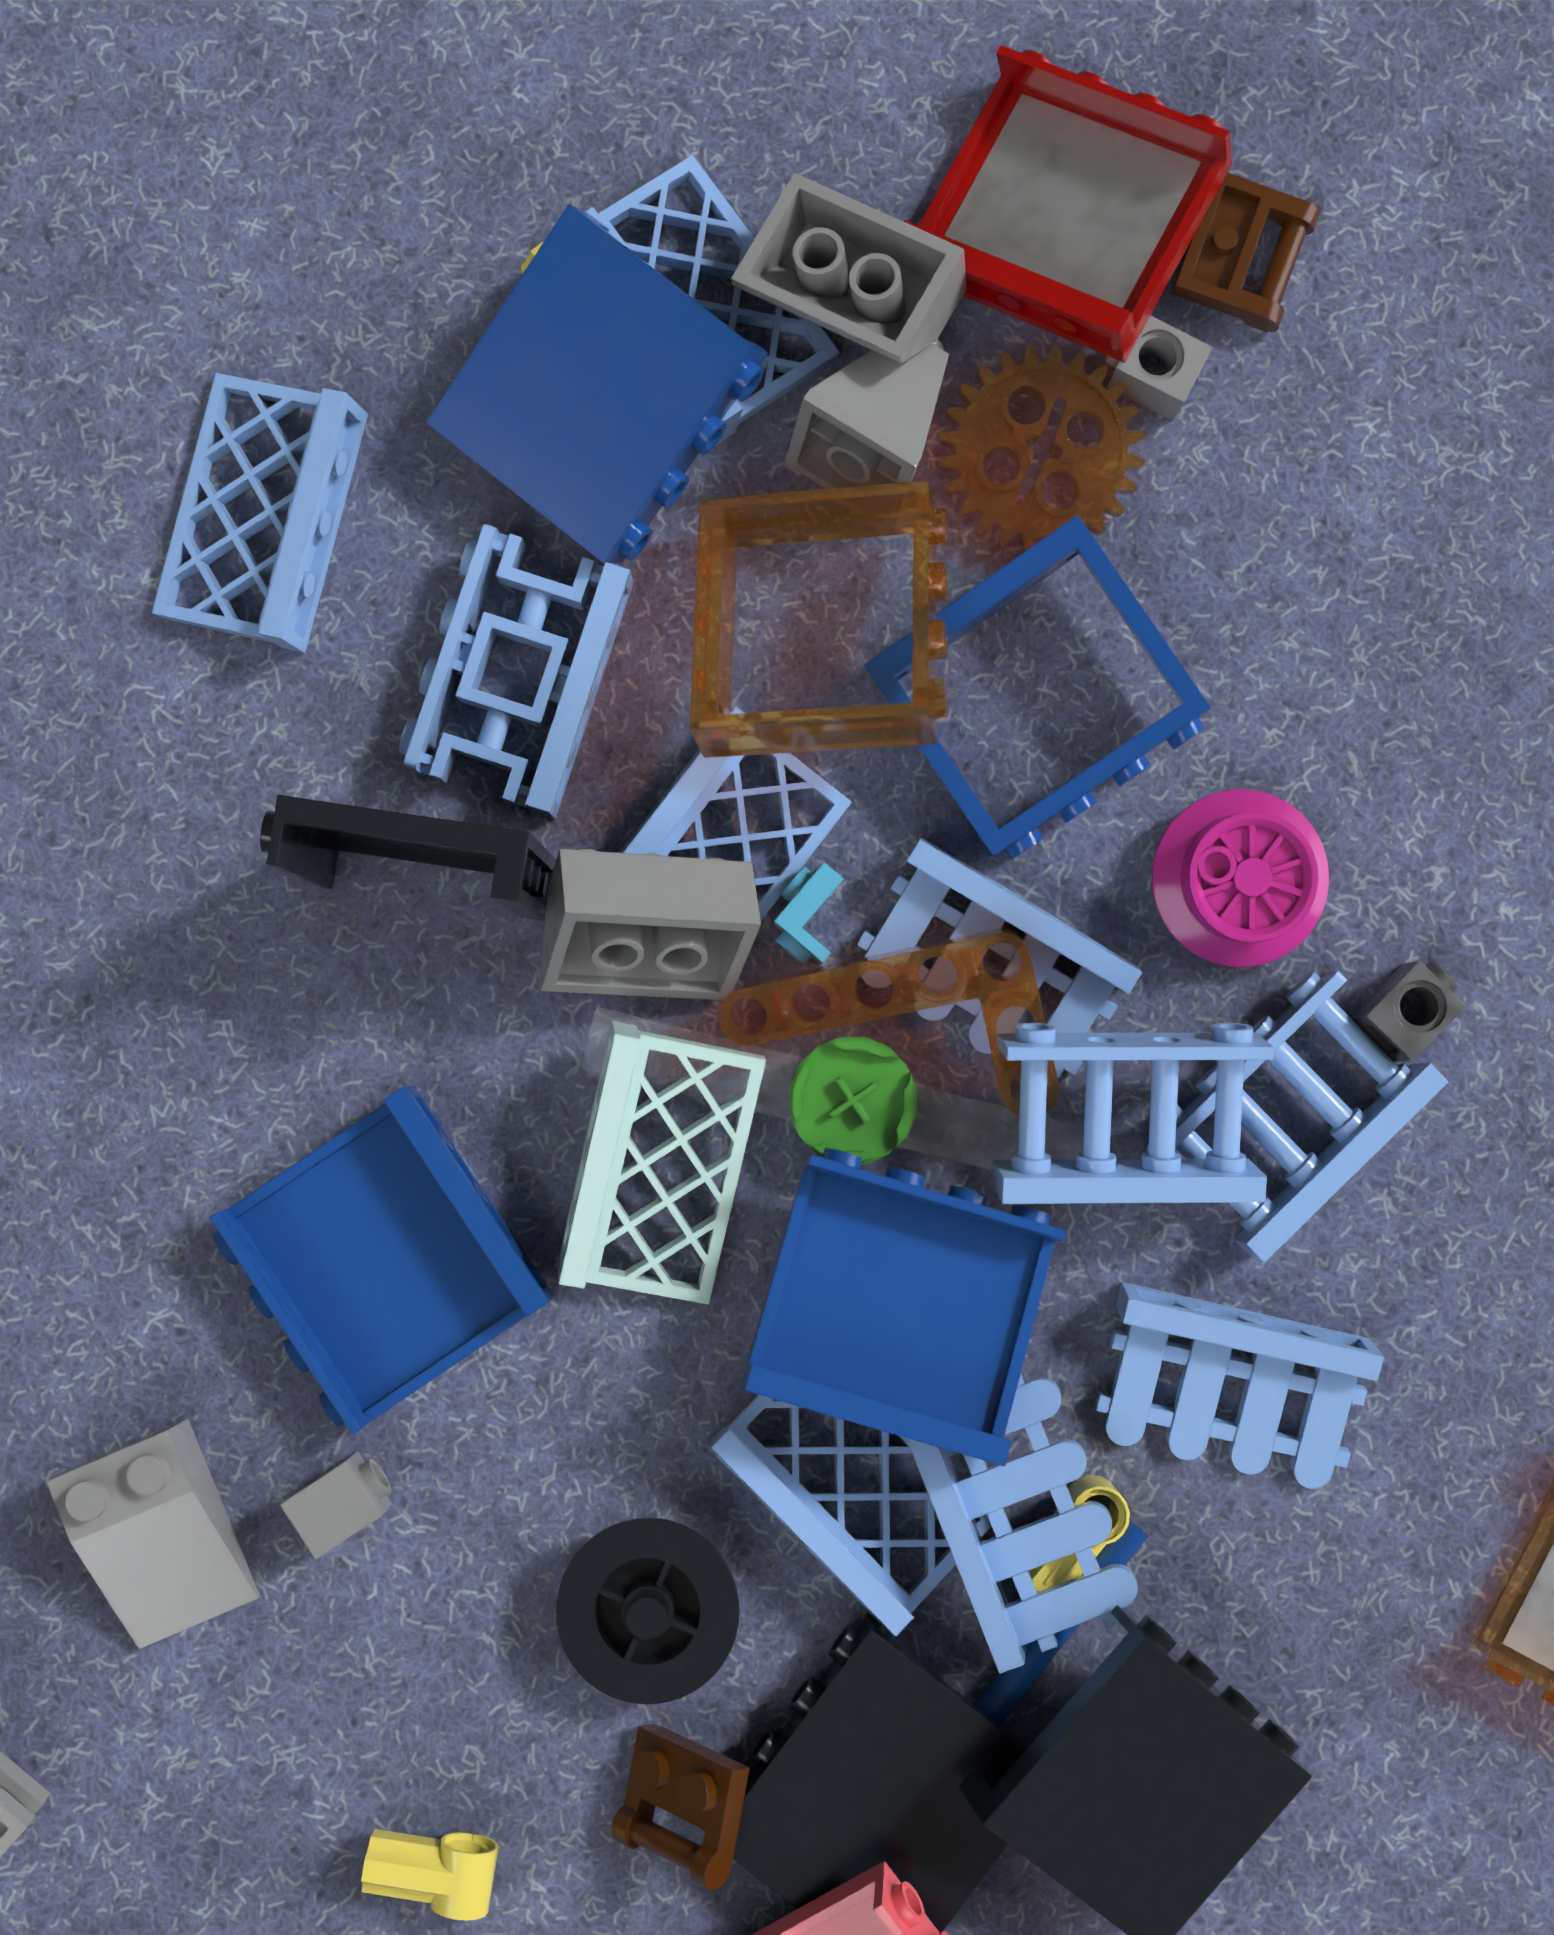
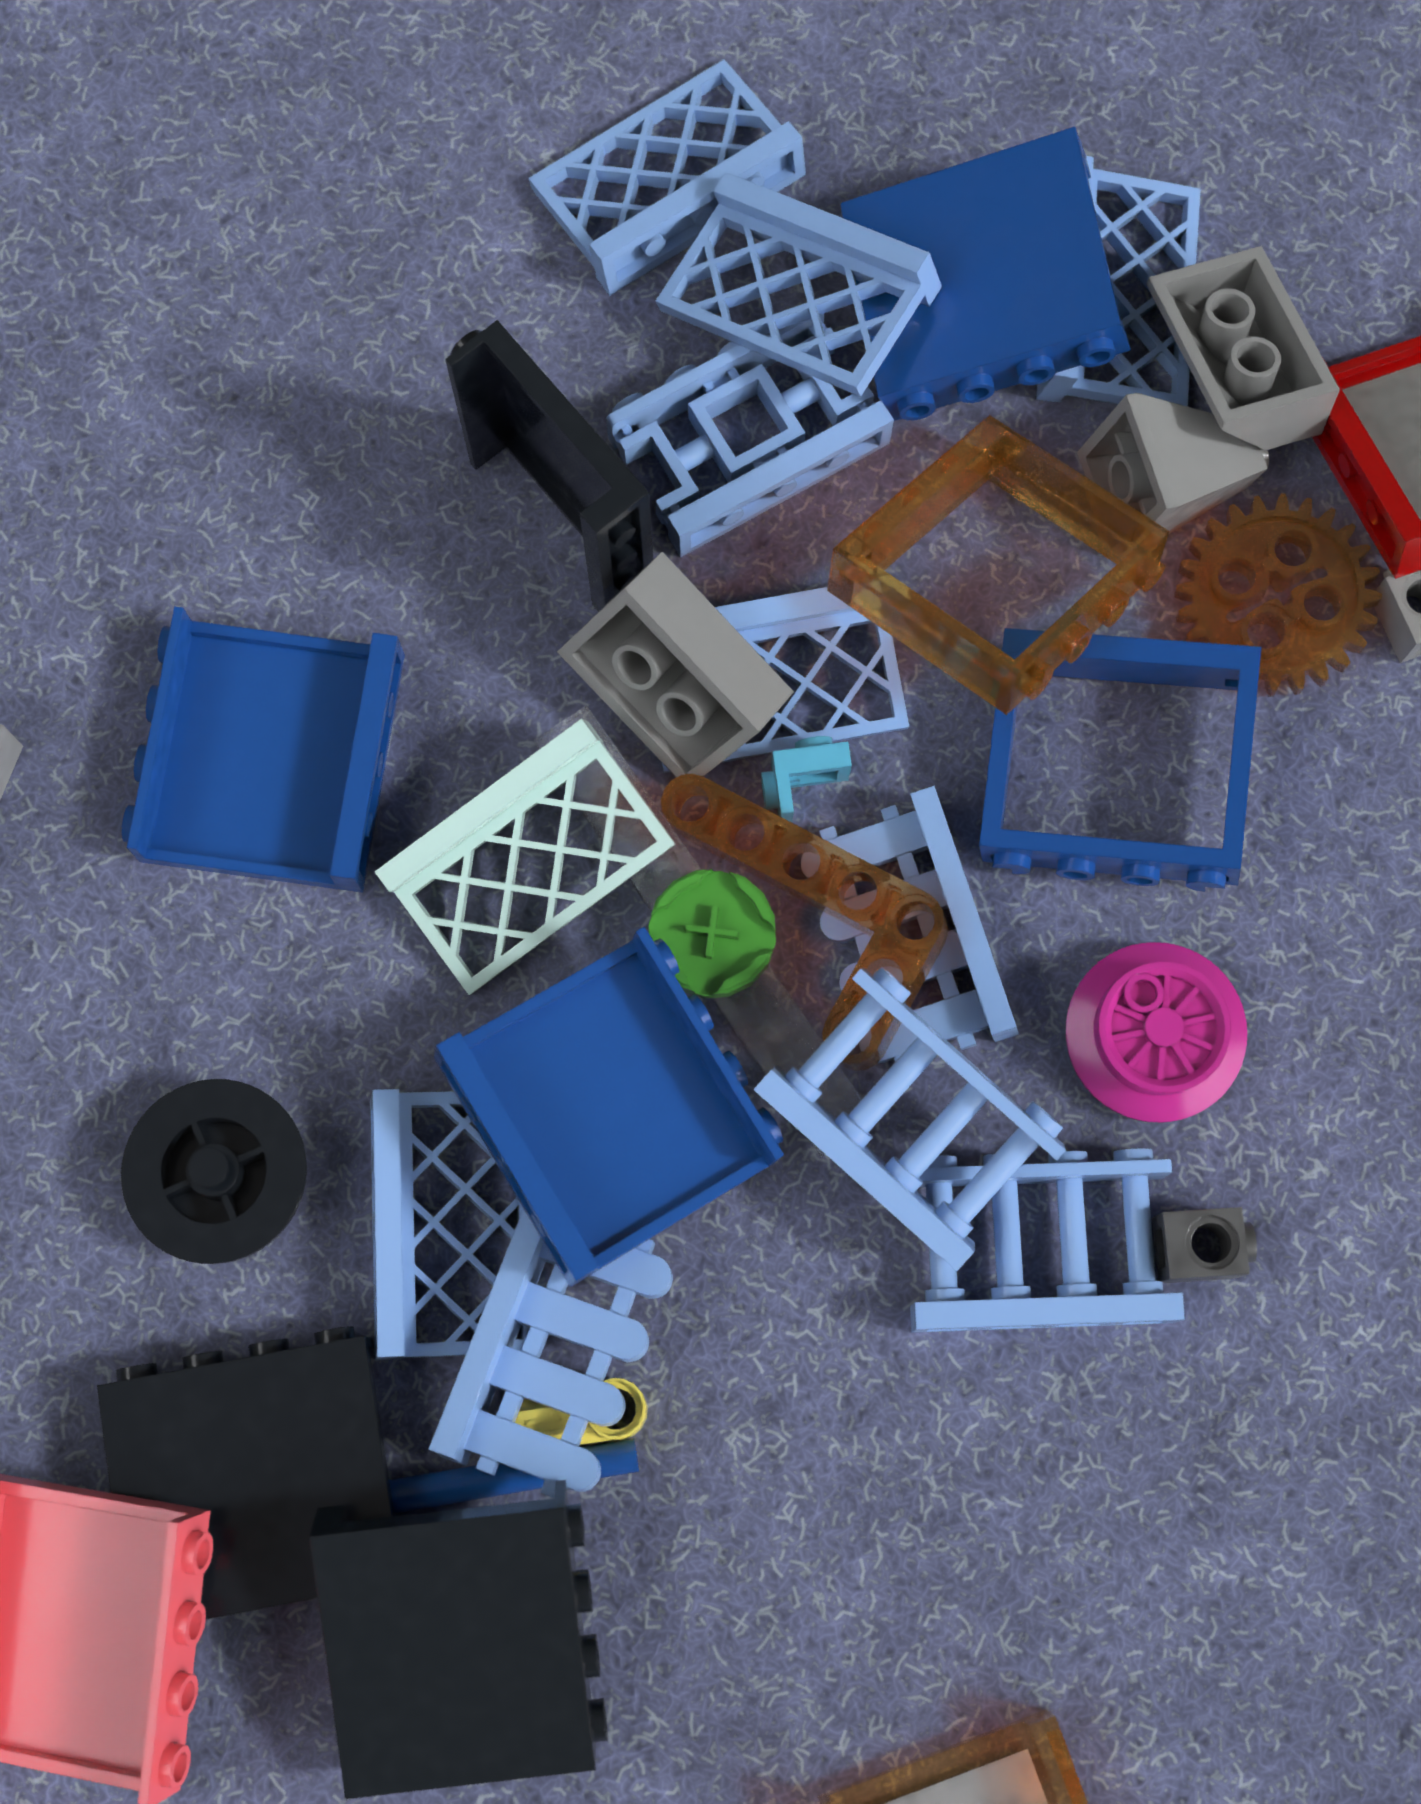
camera: 45 degrees right, 10 degrees down
(338, 1503) = (69, 894): light grey brick -> none
(457, 470) = (831, 246): none -> light blue fence
(691, 1785) = (122, 1330): reddish brown plate -> none
(1269, 1374) = (842, 1430): light blue fence -> none

